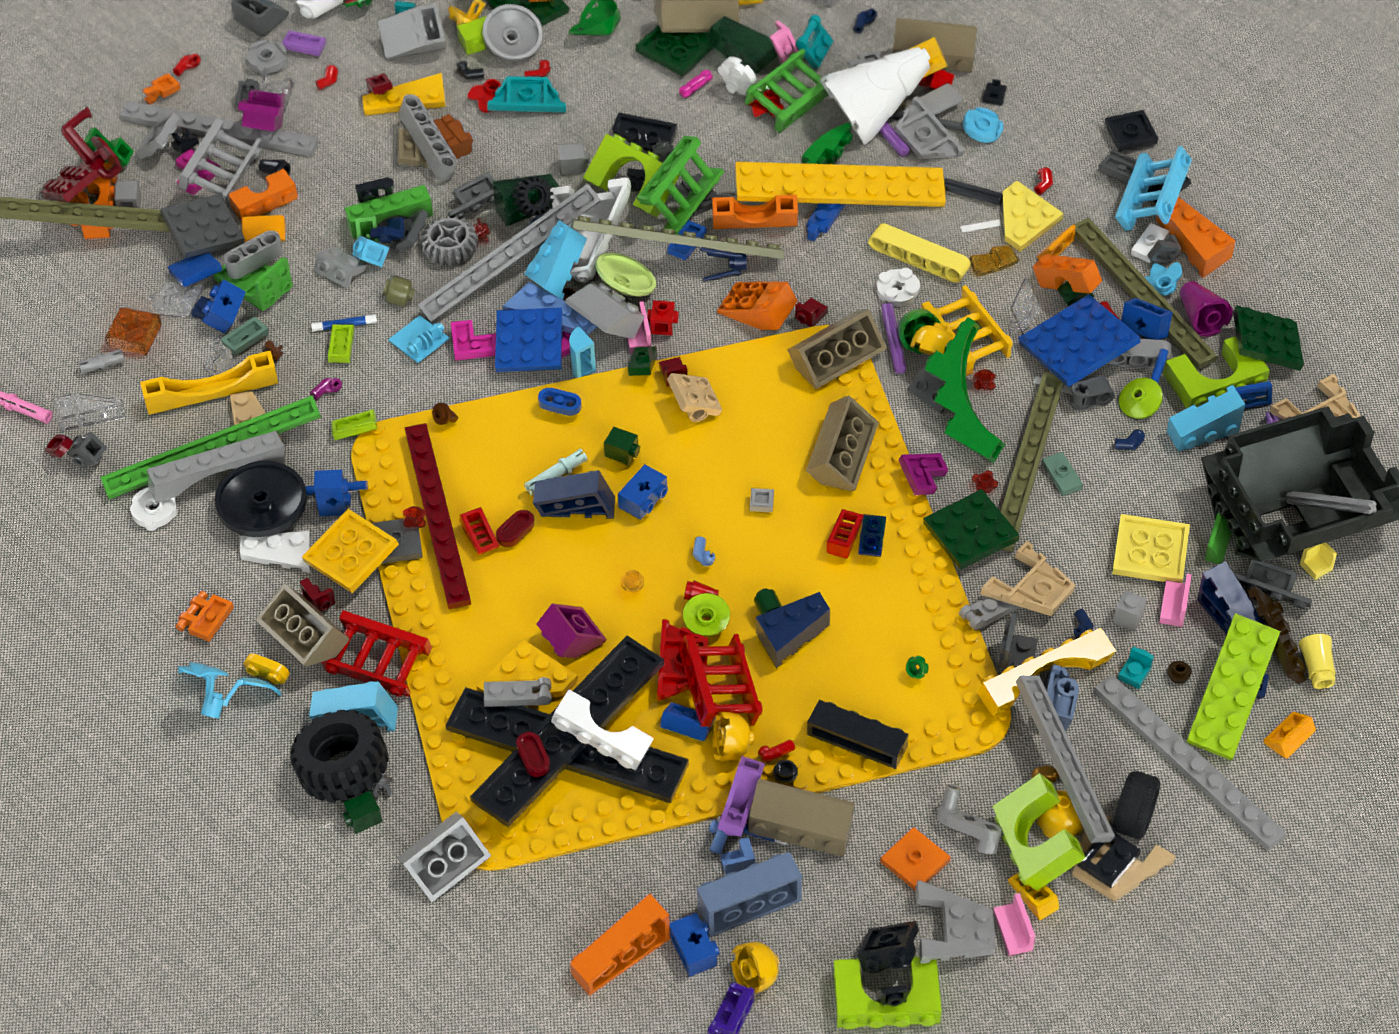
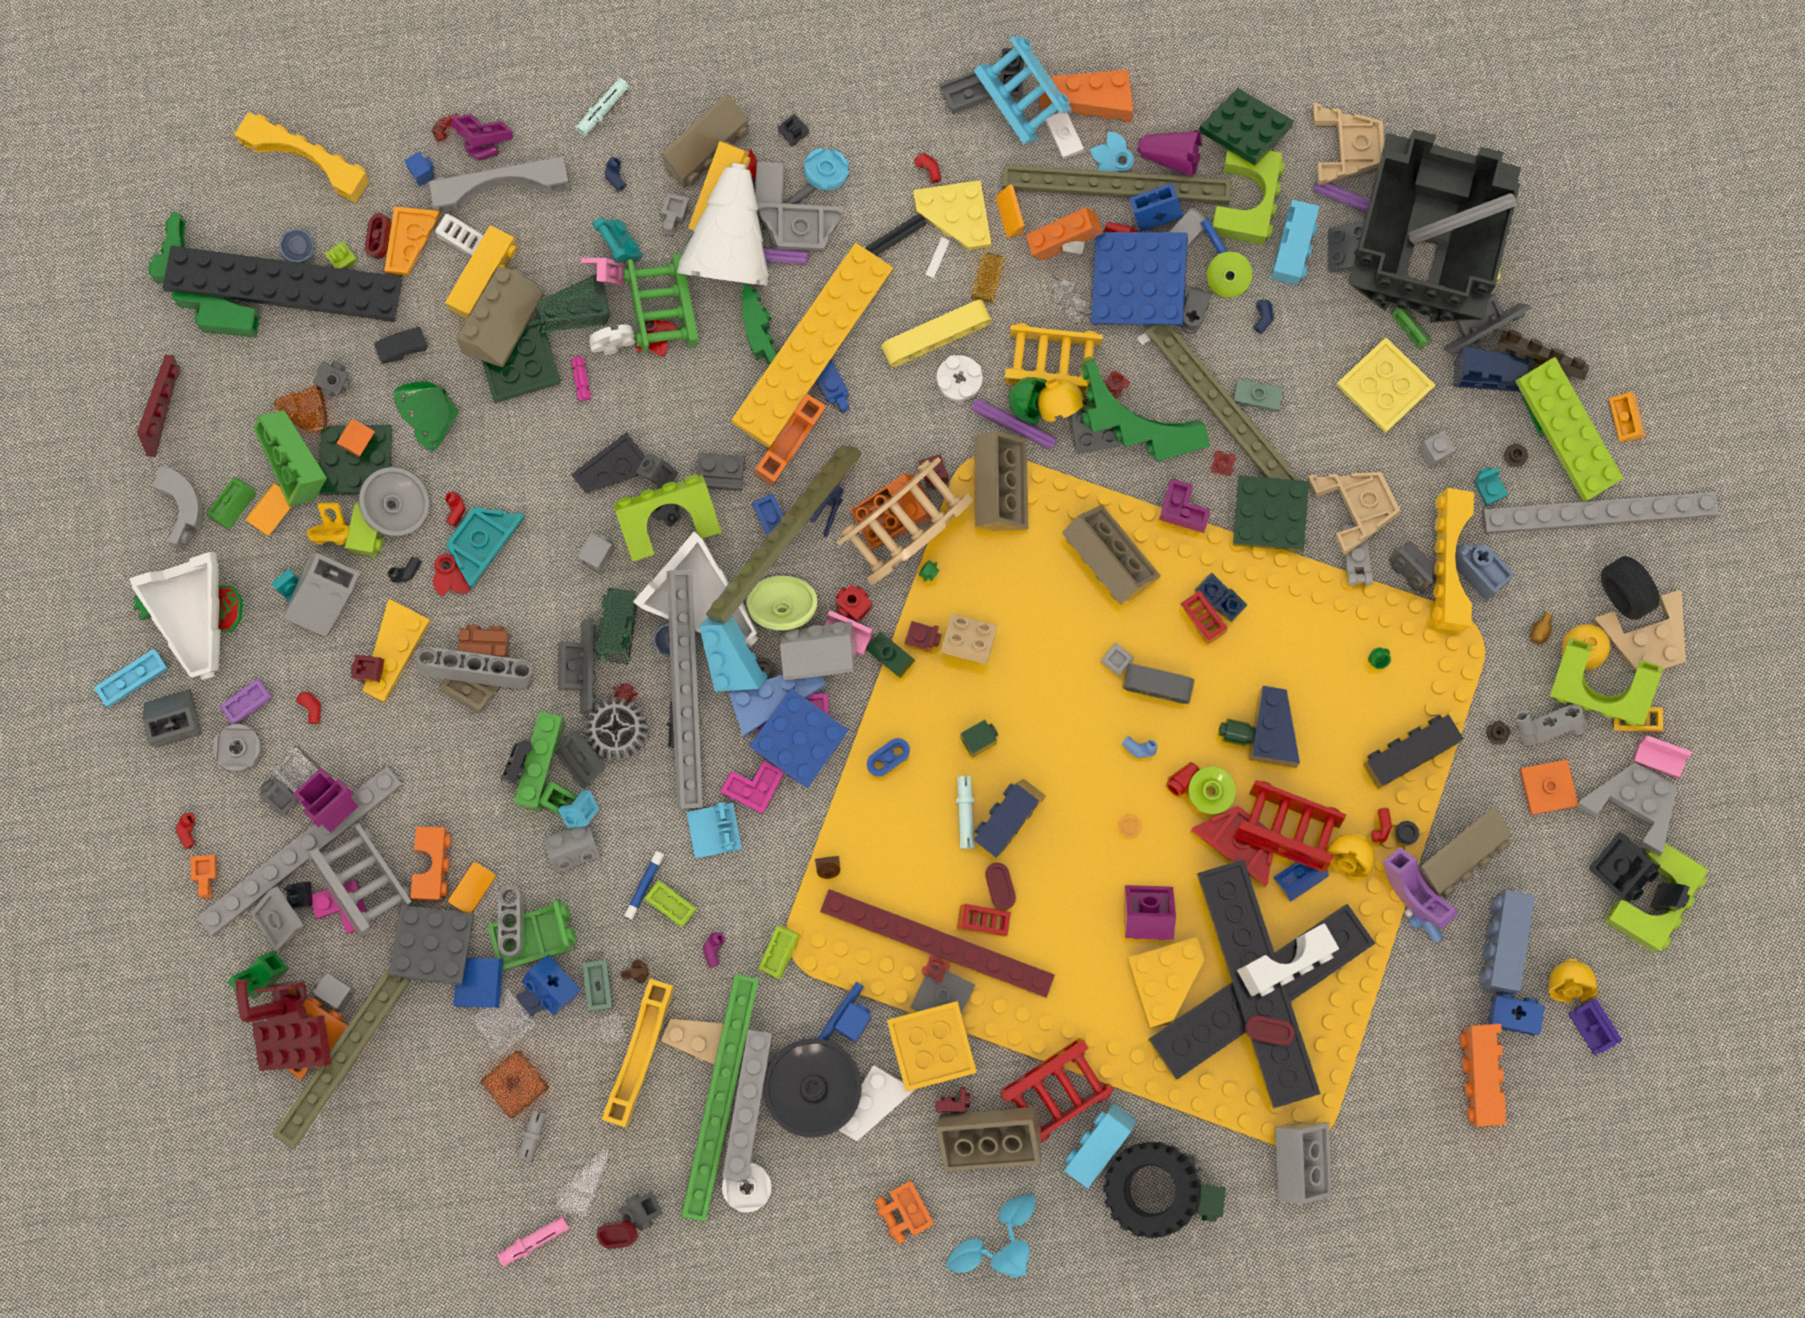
camera: 55 degrees left, 25 degrees up
(266, 668) = (995, 1199): yellow plate -> none
(271, 166) = (398, 830): black cone -> none
(392, 232) = (577, 778): dark blue bracket -> none
(398, 291) = (646, 814): olive head -> none
(517, 693) = (1187, 1001): light grey plate -> none
(543, 196) = (628, 626): black tyre -> none
(581, 353) = (848, 704): medium azure brick -> none
(643, 492) = (1033, 744): blue brick -> none
(664, 179) = (710, 488): bright green fence -> none
(728, 345) = (929, 571): none -> green plate
(739, 859) = (1460, 927): medium blue panel -> none
(745, 317) = (919, 537): none -> tan fence
(764, 533) = (1158, 684): none -> dark grey beam
(927, 799) = (1493, 736): none -> dark brown plate
(1065, 759) = (1557, 612): light grey plate -> none
(1084, 622) = (1422, 494): dark blue arm -> none
(1114, 861) = (1660, 638): black plate -> none
(1131, 130) = (928, 51): black plate -> none
(1165, 250) = (1087, 127): dark grey bracket -> none
(1175, 602) = (1449, 405): bright pink panel -> none
(1256, 390) = (1290, 187): blue tile -> none
(1319, 659) = (1584, 343): light yellow plant -> none

